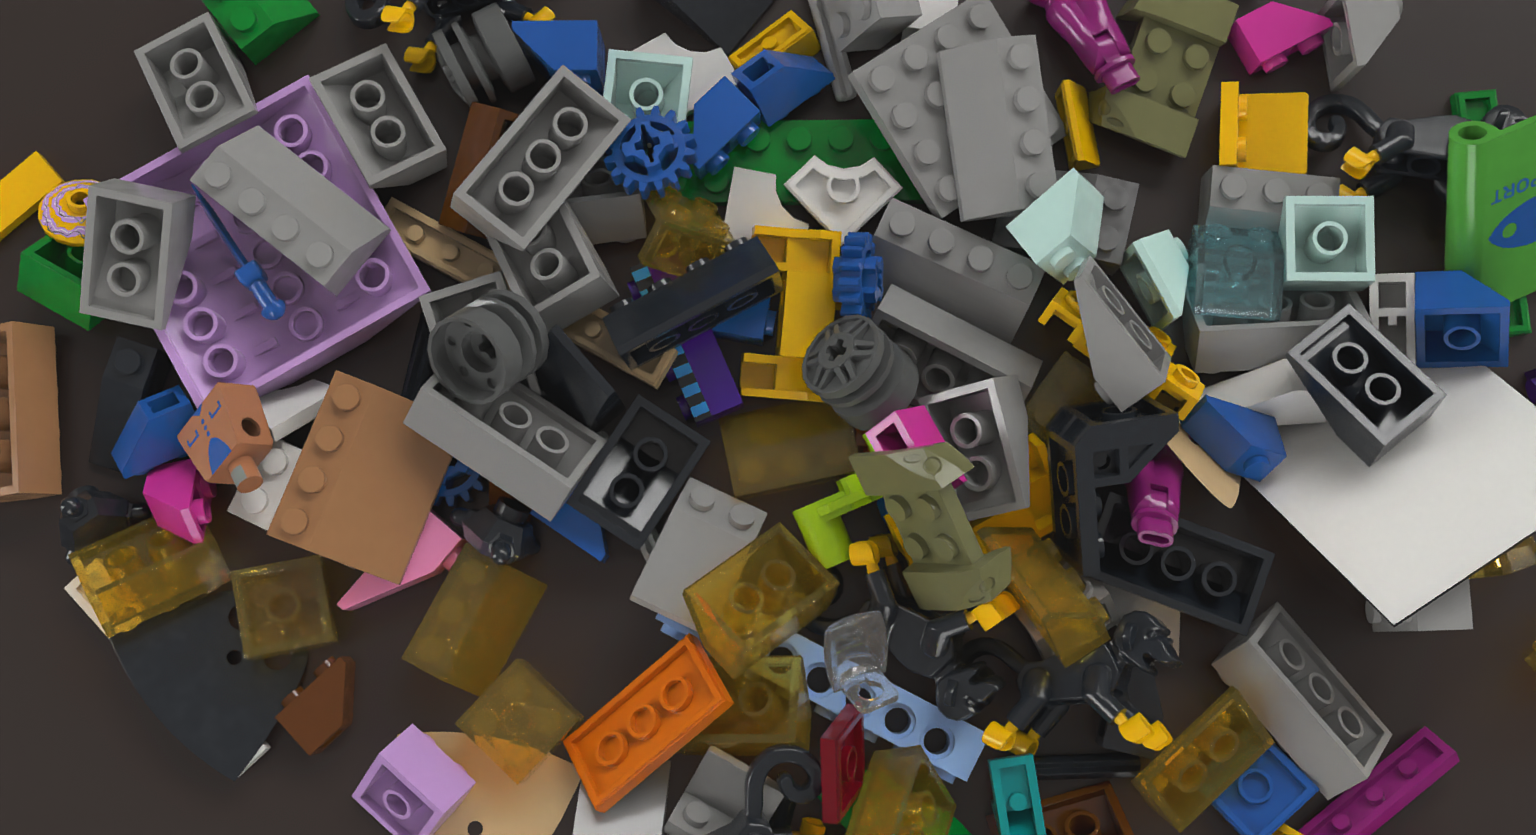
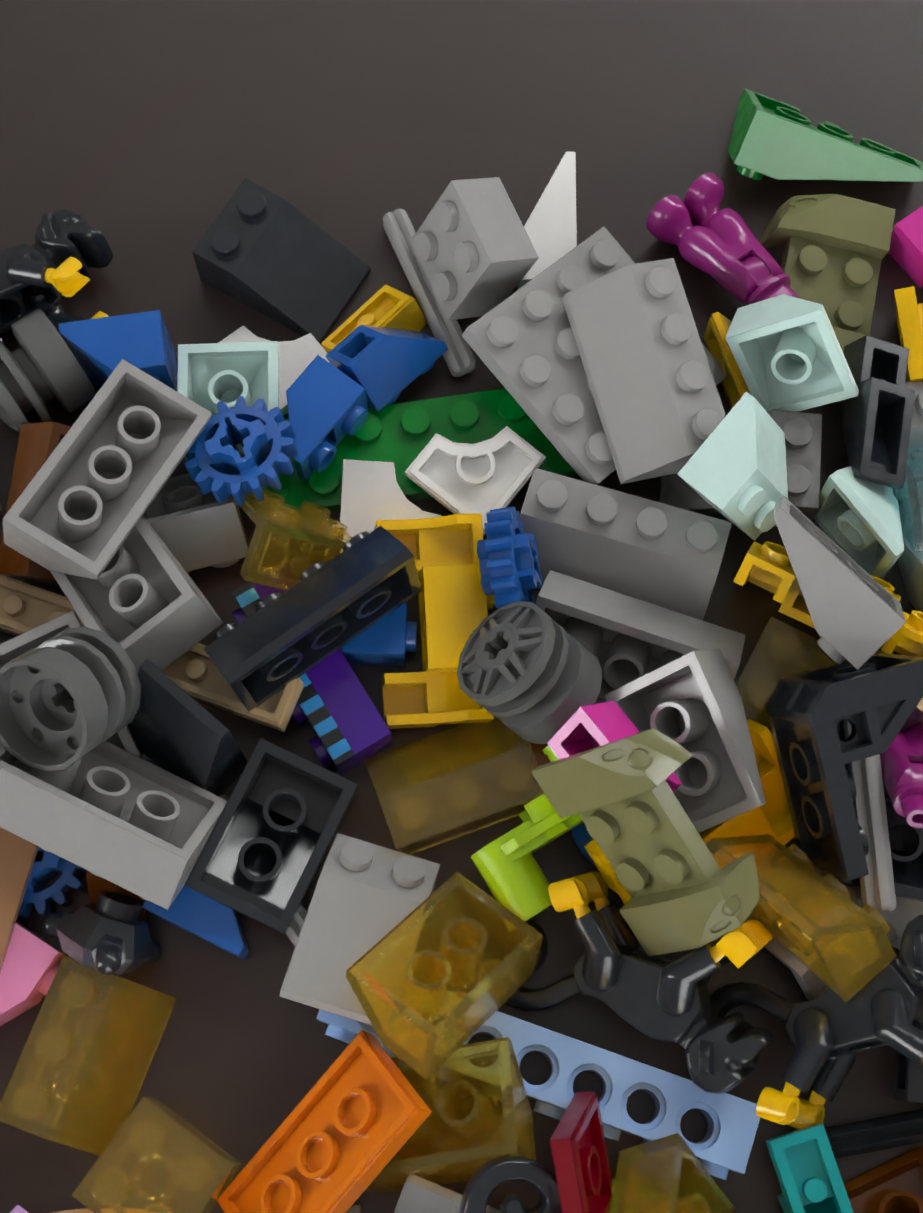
camera: 10 degrees left, 10 degrees down
(859, 654) = (581, 1026): clear piece -> none
(1112, 528) = (871, 815): none -> light grey axle
(1118, 130) = (790, 354): none -> light aqua slope
(1185, 188) = (881, 415): none -> black slope

